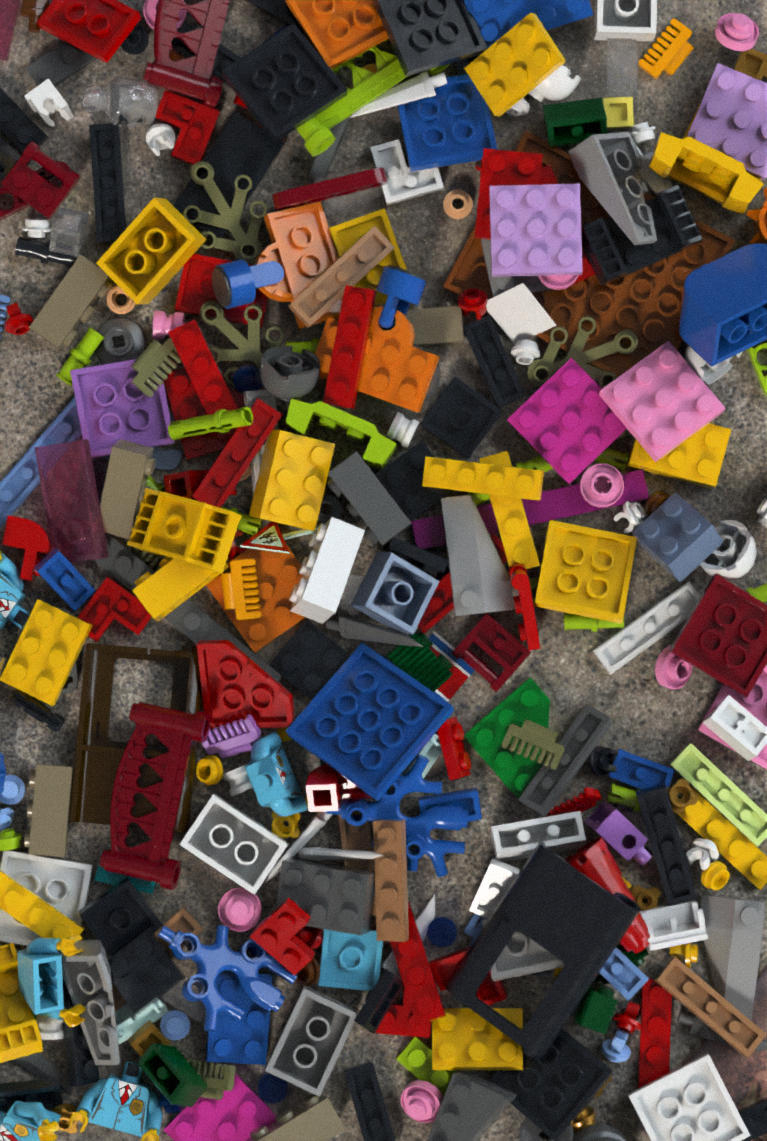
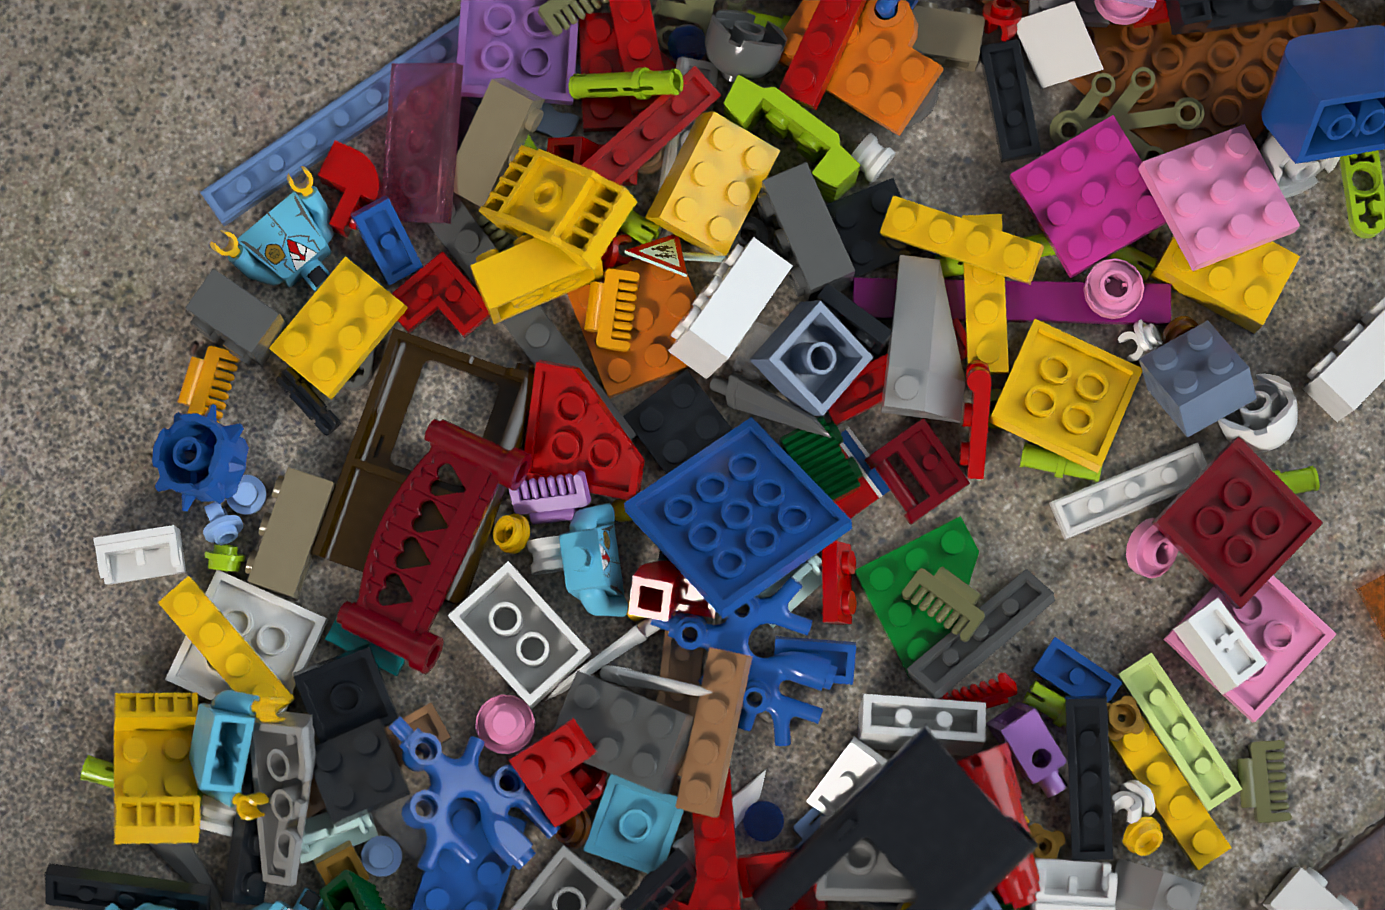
camera: 15 degrees right, 5 degrees down
(286, 831) = (583, 630): yellow plate -> none
(461, 417) = (950, 161): black plate -> none
(525, 352) = (1053, 97): white plate -> none
(600, 761) = (1026, 647): black plate -> none

